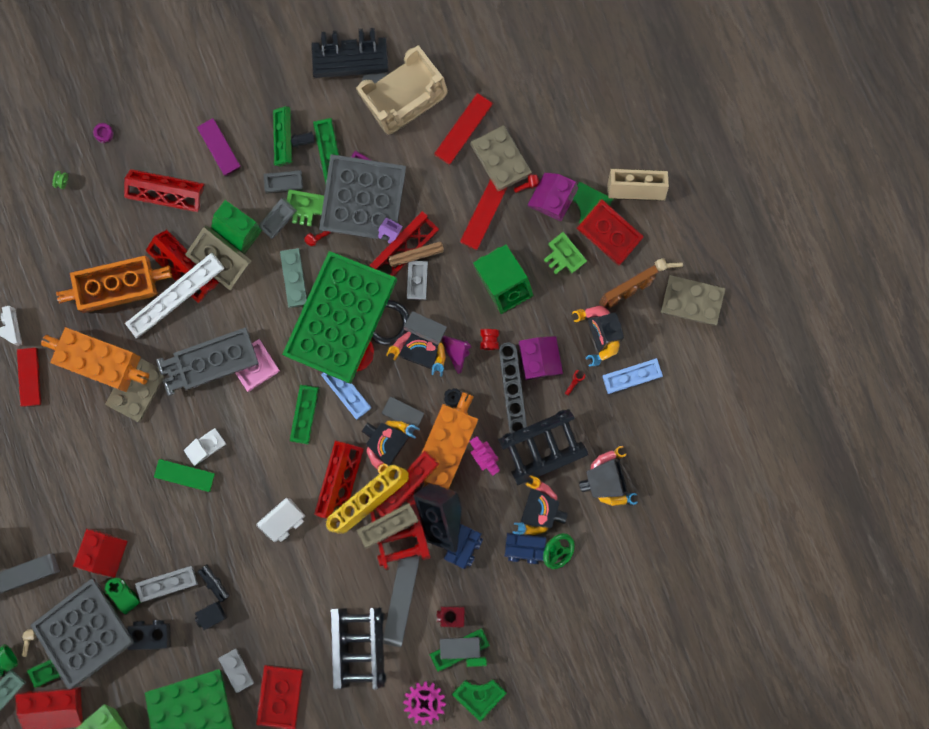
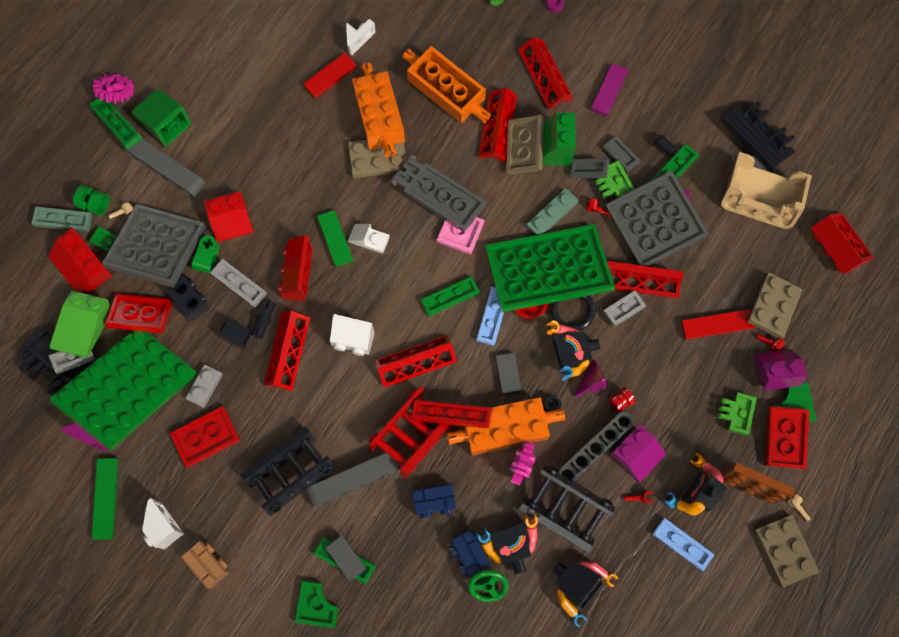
camera: 55 degrees right, 10 degrees down
(133, 685) = (139, 313): none -> red tile
(174, 295) = (471, 133): white tile -> none
(189, 527) = (296, 269): none -> red slope
(247, 583) = (280, 349): none -> red fence
(282, 136) = (655, 128): green tile -> none
(376, 497) = (424, 395): yellow beam -> none
(386, 442) = (475, 376): torso -> none
(387, 526) = (406, 421): dark tan plate -> none
(390, 229) = (649, 255): medium lavender tile -> none
(415, 254) = (644, 292): medium nougat axle -> none
(415, 692) = (280, 552): dark pink gear -> none
(425, 328) = (591, 339): dark grey tile -> none
(439, 515) = (446, 460): black slope -> none
(458, 622) = (371, 540): dark red brick -> none
(463, 129) = (773, 260): red tile -> none
(476, 661) = (346, 584): green tile -> none
(489, 63) = (841, 243): none -> red slope
(503, 278) = (680, 377): green slope -> none
(638, 184) = (846, 431): tan brick -> none

